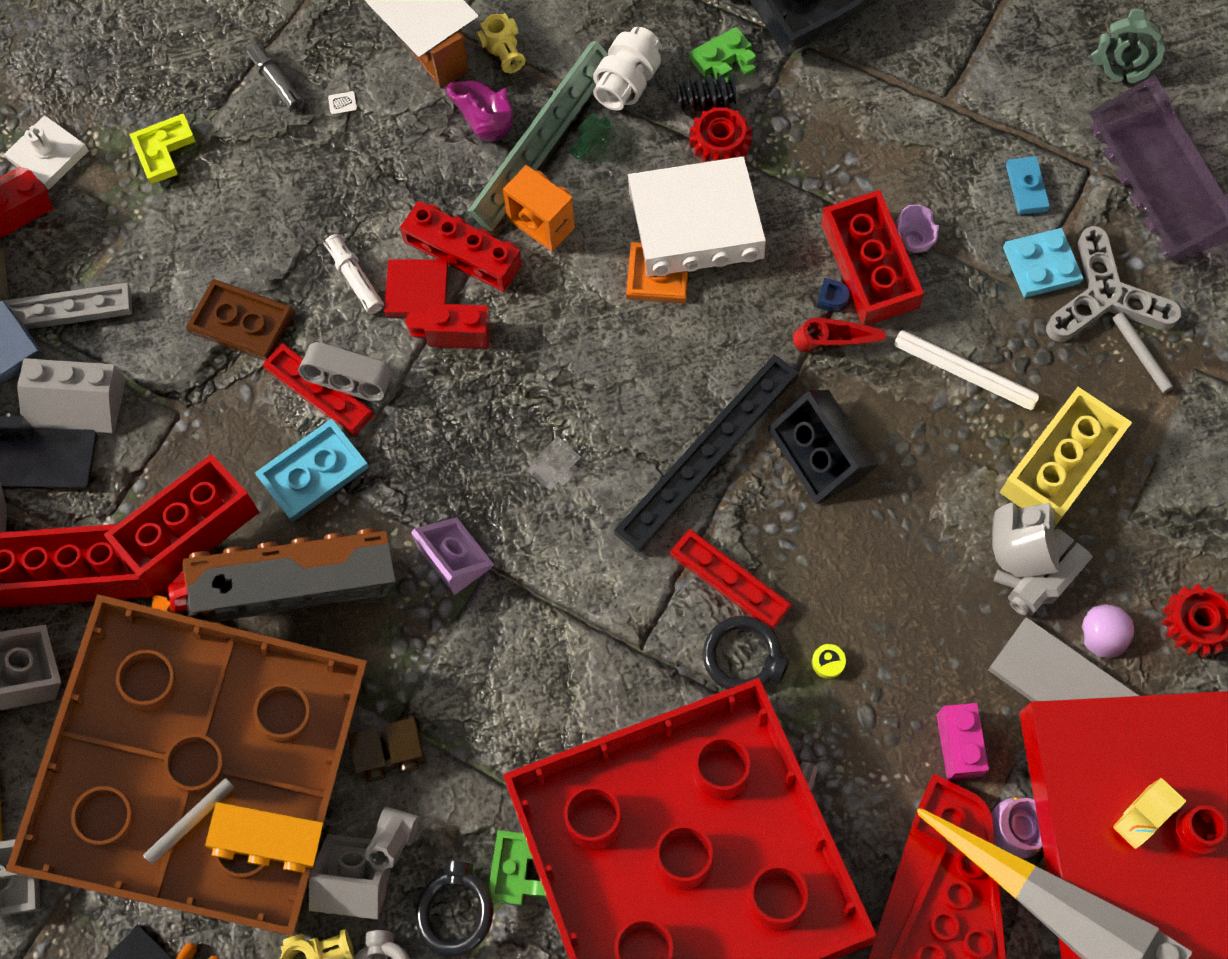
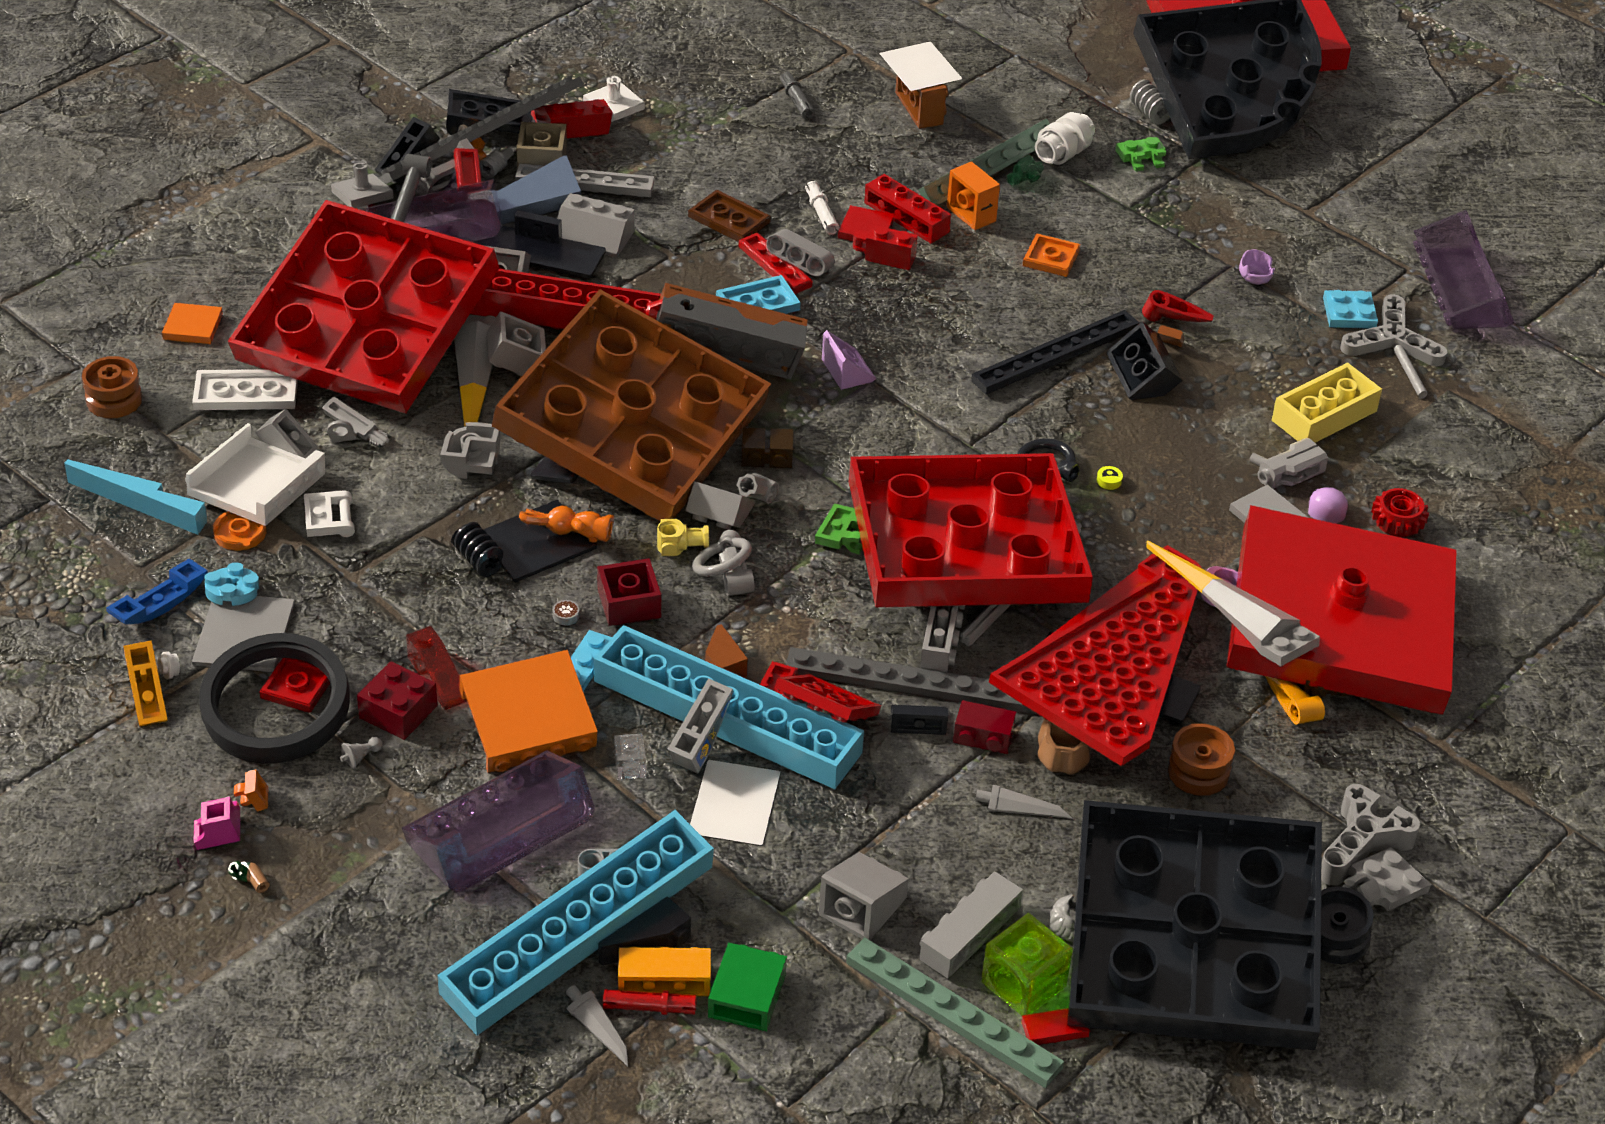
camera: 10 degrees right, 25 degrees down
(155, 144) = (697, 112): neon yellow plate -> none
(181, 520) = (646, 281): red brick -> none
(182, 827) = (624, 420): light grey bar -> none
(263, 837) = (674, 440): light orange brick -> none
(342, 102) = (843, 121): white sticker -> none
(458, 875) = (798, 518): black piece -> none
(485, 110) = (947, 141): magenta piece -> none
(499, 38) = (973, 108): light yellow connector -> none
(554, 464) = (938, 328): clear brick -> none
(696, 216) = (1090, 226): white panel -> none
(706, 93) = (1120, 165): black piece -> none
(720, 123) = (1124, 191): red gear -> none
(730, 579) = (1049, 420): red tile -> none
(833, 296) = (1183, 291): dark blue tile -> none
(842, 383) = (1171, 335): none -> dark orange tile
(872, 258) = (1217, 273): red brick -> none
(962, 742) = (1195, 531): dark pink brick -> none
(966, 370) = (1268, 351): white axle -> none
(1025, 540) = (1279, 433): light grey brick -> none
(1027, 185) = (1353, 266): dark azure plate -> none
(1129, 47) = (1462, 190): sand green piece -> none
(1148, 812) = (1315, 568): light yellow leg -> none

